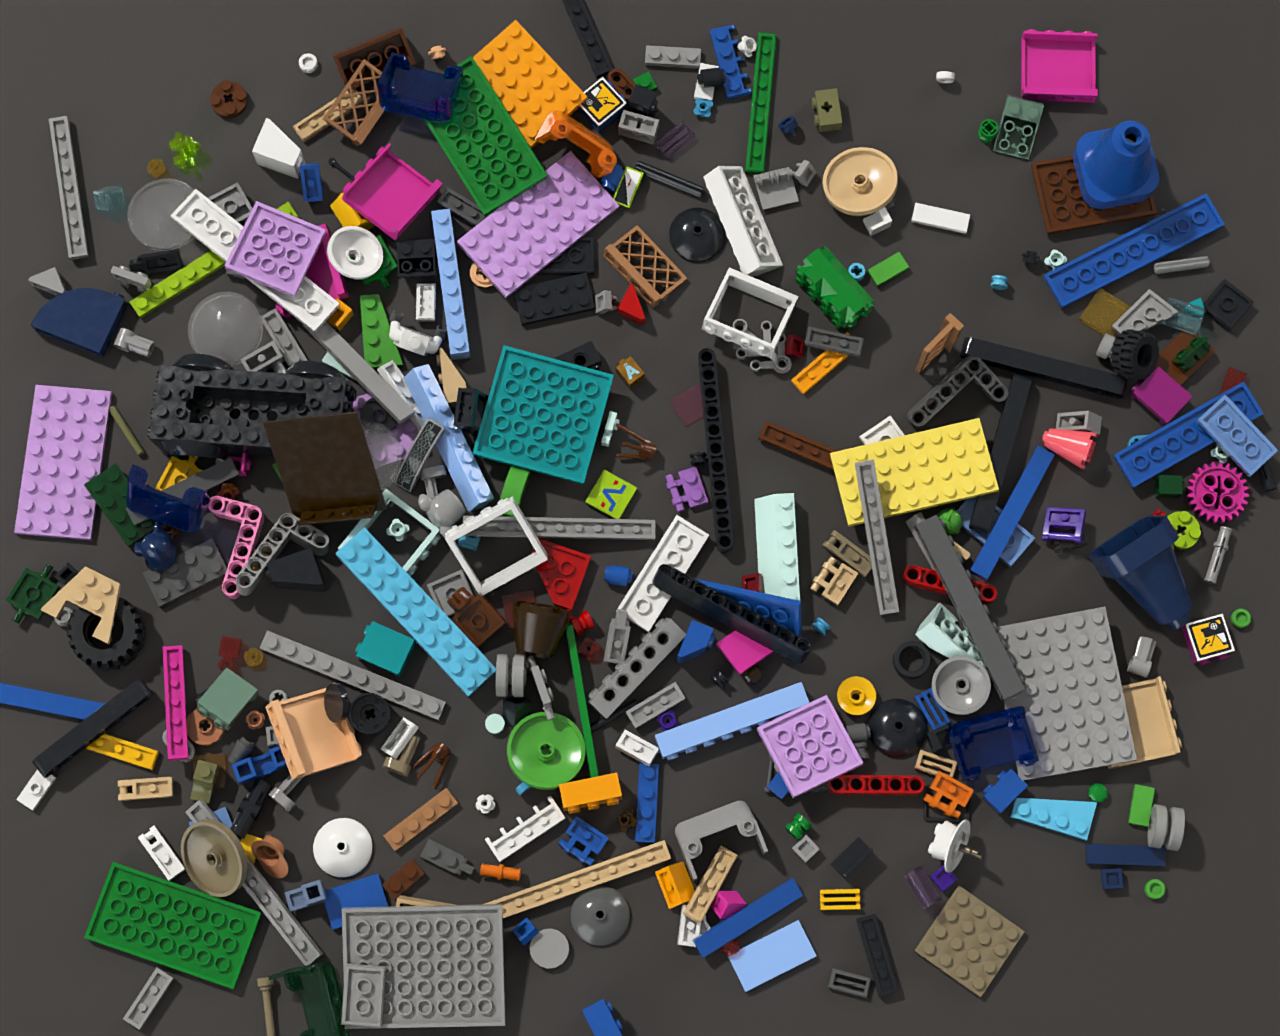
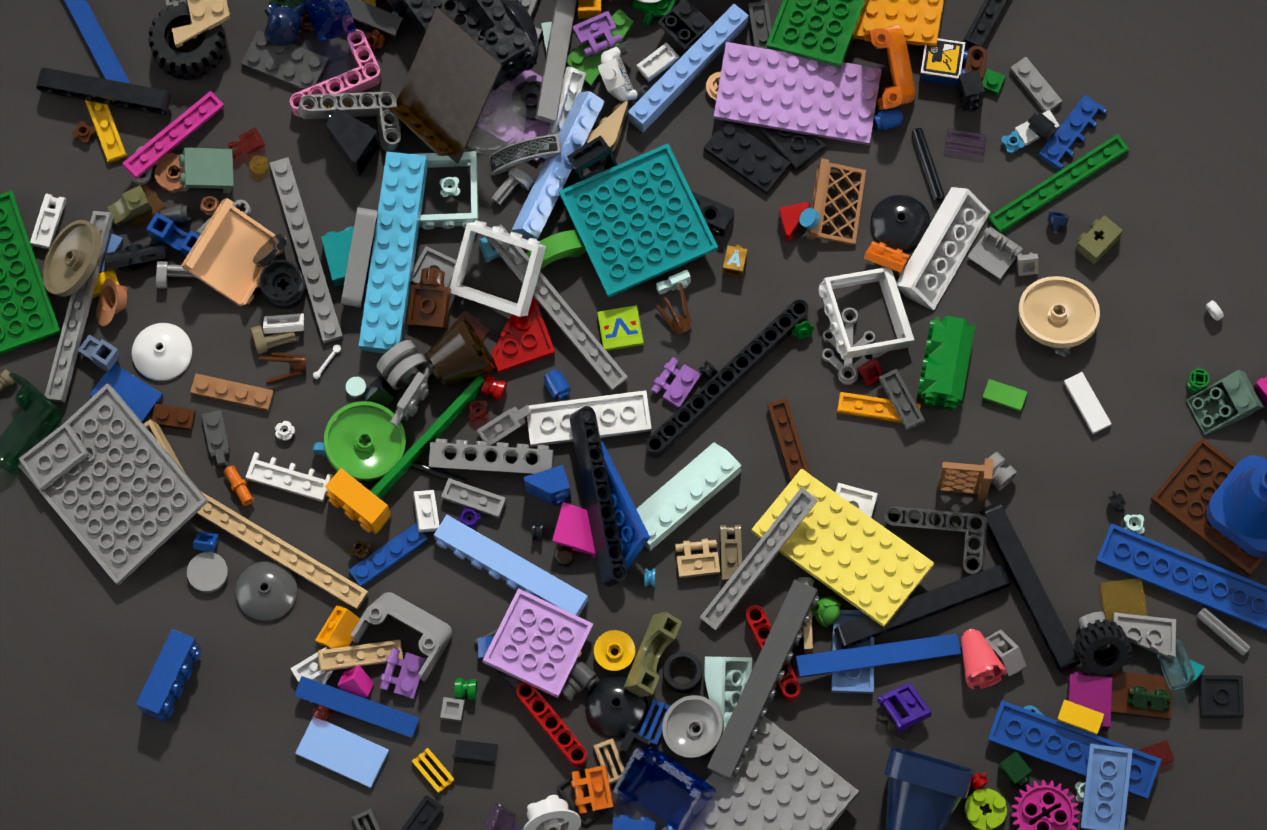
camera: 55 degrees right, 5 degrees down
(35, 790) = (22, 92): white plate -> none
(116, 772) = (86, 137): none -> reddish brown plate
(146, 788) = (89, 169): tan plate -> none
(245, 462) = (407, 33): dark pink bracket -> none
(363, 324) = (595, 28): none -> medium lavender plate
(379, 614) = (359, 257): none -> light grey beam
(442, 510) = (494, 206): light grey piece -> none
(452, 715) = (336, 349): none -> white hinge
(587, 836) = (322, 529): blue plate -> none
(604, 302) = (775, 196): light grey tile -> none
(628, 186) = (892, 137): slope -> none
(638, 127) = (948, 104): light grey brick -> none
(645, 293) = (809, 218): none -> dark azure tile
(689, 405) = (747, 328): clear pink piece -> none
(718, 264) = (886, 256): none -> orange plate
(723, 368) = (803, 330): none -> green plant
(747, 46) = (1102, 134): white plate -> none
(753, 582) = (640, 494): dark red plate -> none
(754, 861) = (408, 676): none -> medium lavender plate
(859, 267) = (976, 378): medium azure bush -> none
(871, 652) = (659, 634): none -> olive arch
(878, 222) = (1038, 355): white panel -> none
(936, 317) = (1002, 473): none -> light grey wheel
(999, 282) = (1072, 492): medium azure bush -> none
(1171, 410) = (1080, 717): none -> yellow tile

